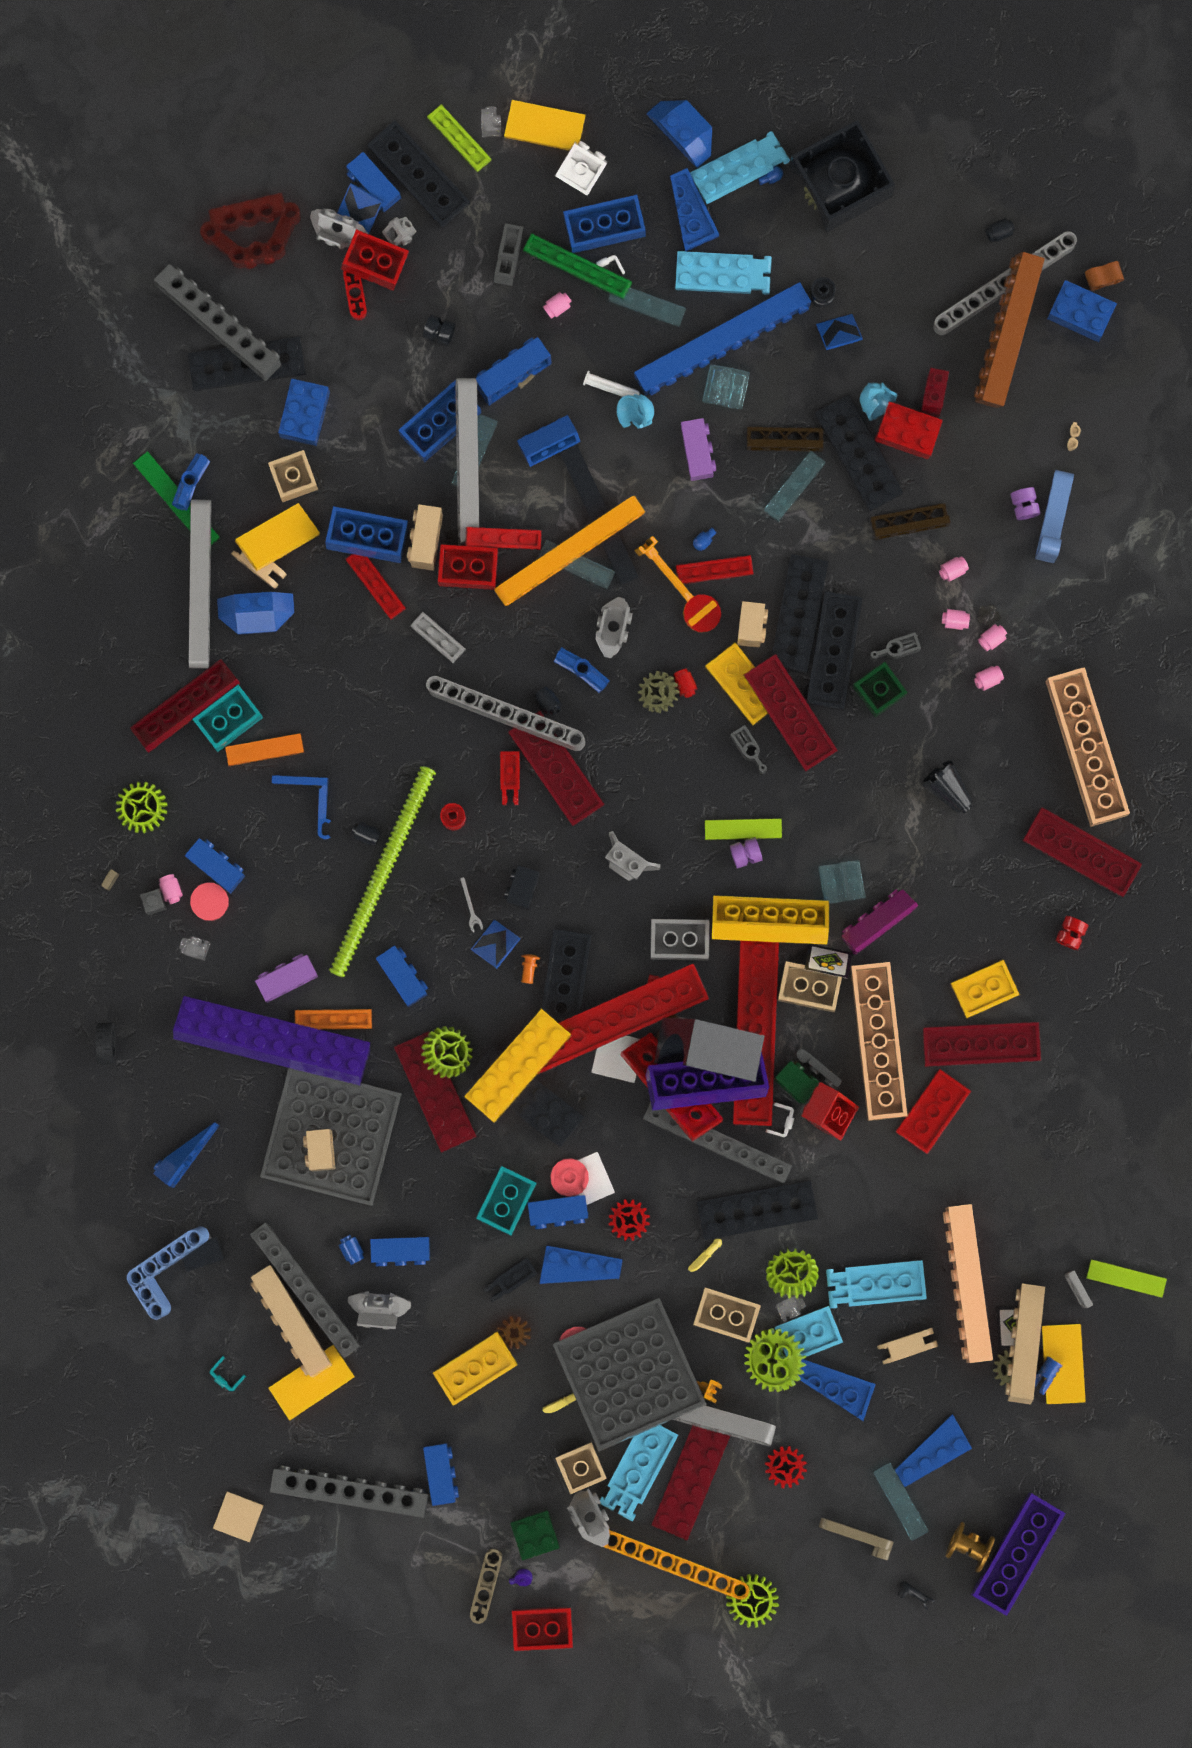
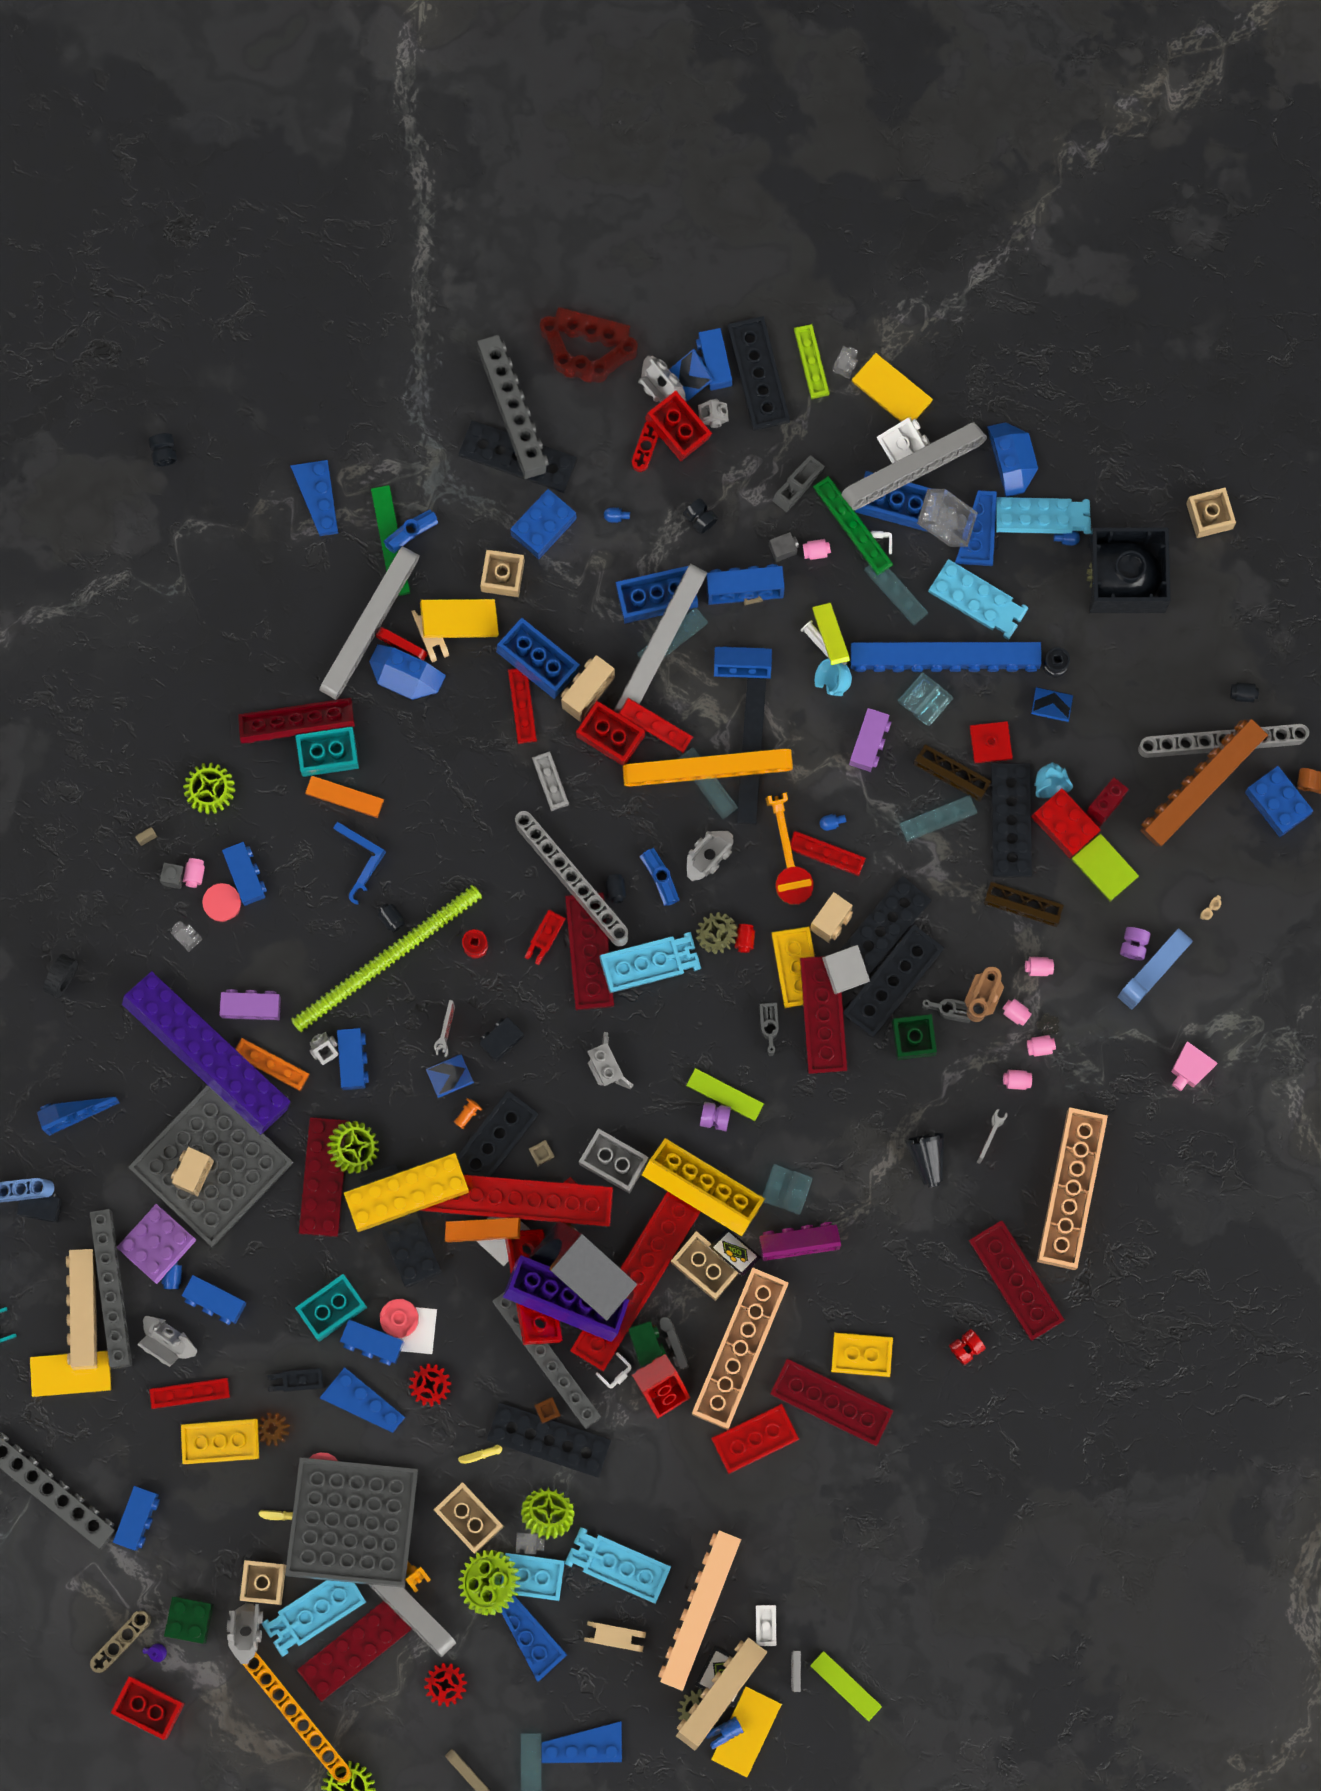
camera: 25 degrees right, 5 degrees down
(85, 490) = (317, 492): none -> blue wing
(238, 587) = (401, 644): none -> red beam
(323, 1229) = (156, 1243): none -> medium lavender plate
(363, 369) = (615, 515): none -> blue cylinder
(372, 980) = (323, 1048): none -> light grey brick
(424, 1342) = (189, 1393): none -> red tile
(527, 318) = (783, 546): none -> flat silver brick
(600, 1061) = (483, 1230): none -> orange tile
(603, 184) = (913, 466): none -> light grey beam
(612, 373) = (831, 634): none -> neon yellow tile
(612, 967) = (541, 1153): none -> dark tan tile
(614, 750) = (649, 962): none -> medium azure hinge
(658, 215) = (947, 517): none -> clear brick
(742, 1185) = (547, 1410): none -> reddish brown panel
(789, 663) = (846, 969): none -> light grey tile
(803, 394) = (990, 742): none -> red plate
(885, 86) = (1211, 512): none -> tan brick
(920, 618) = (984, 993): none -> medium nougat piece
(962, 450) = (1105, 867): none -> lime tile
(991, 727) = (996, 1122): none -> light grey flag
(1030, 1265) = (766, 1625): none -> white plate
(1131, 585) = (1191, 1067): none -> bright pink torso

